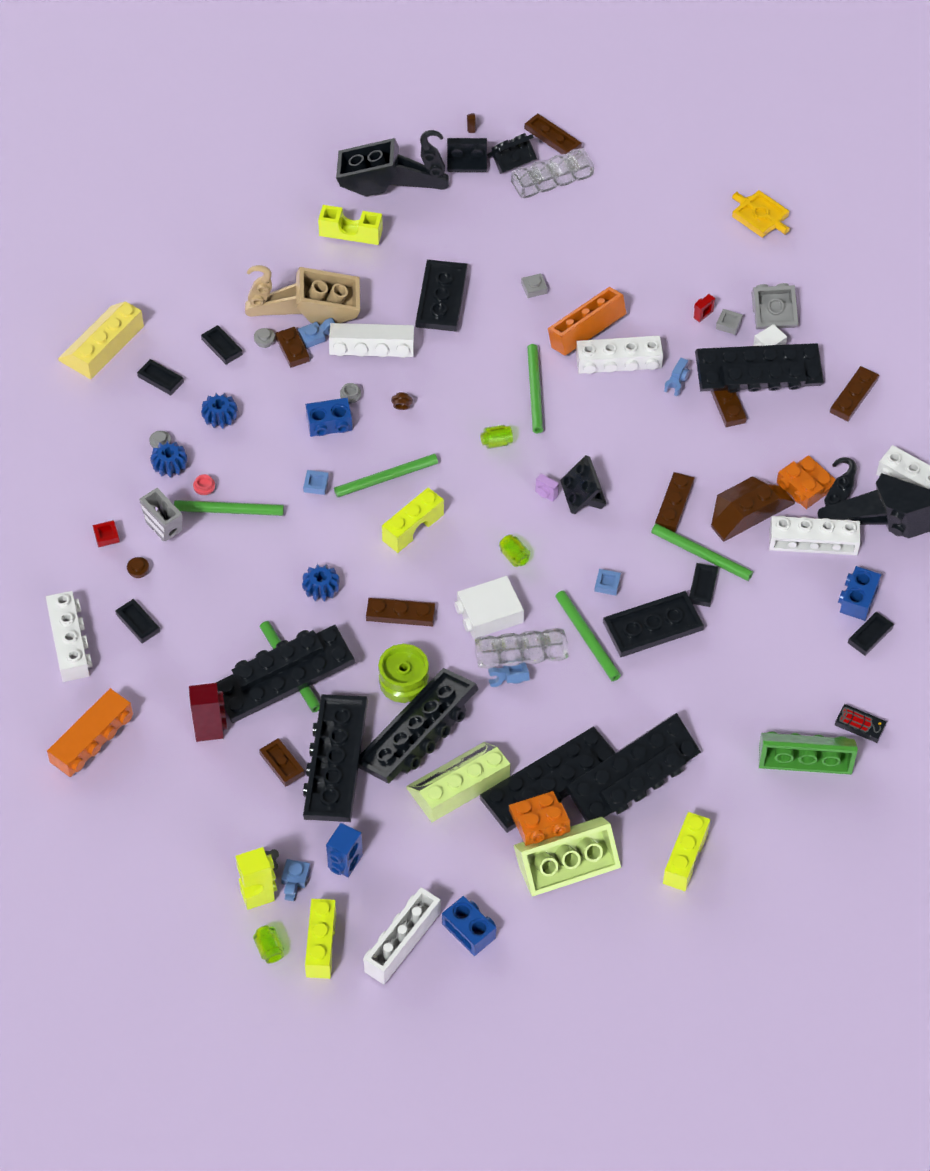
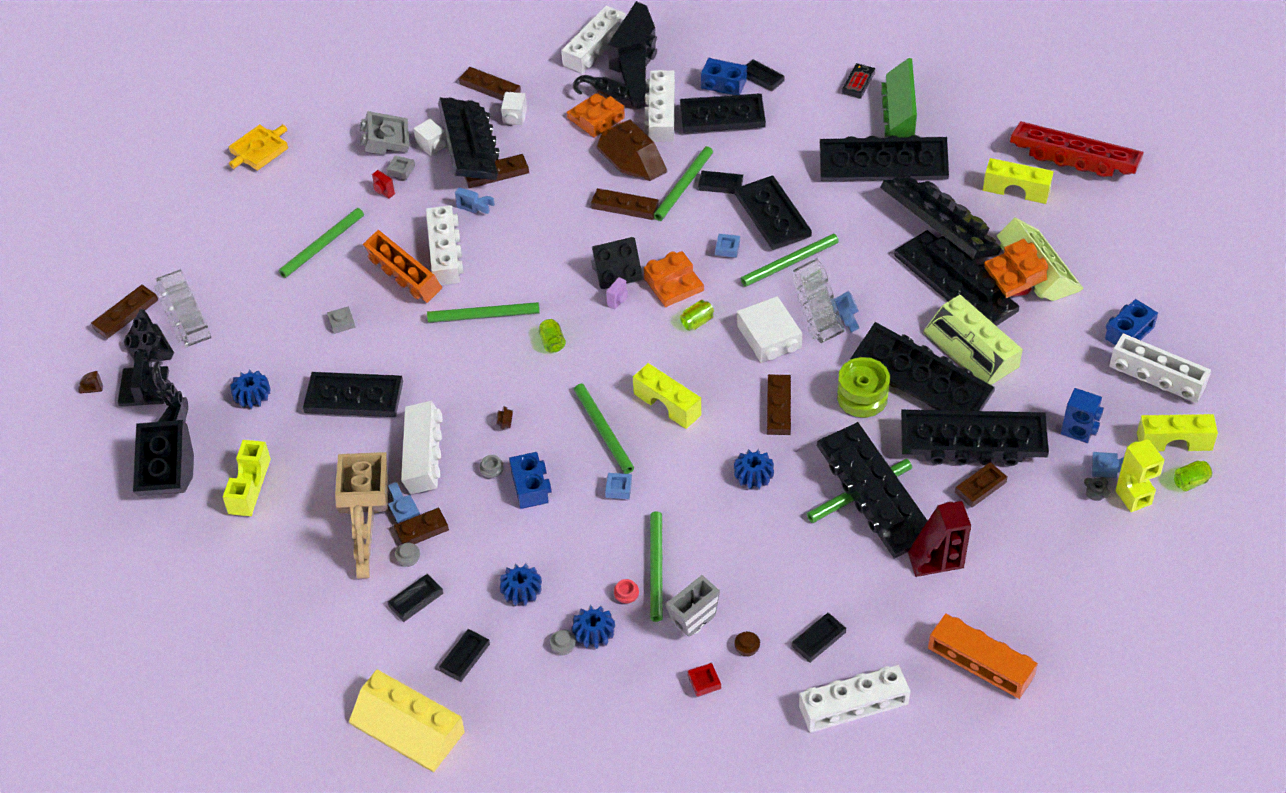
camera: 90 degrees left, 5 degrees down
(453, 224) = (250, 389): none -> blue gear
(566, 535) = (672, 278): none -> orange plate
(633, 267) = (321, 242): none -> bright green piece
(725, 728) = (883, 158): none -> black plate
(735, 917) = (1076, 150): none -> red plate
(804, 590) = (722, 113): none -> black plate
(810, 410) = (514, 108): none -> white brick

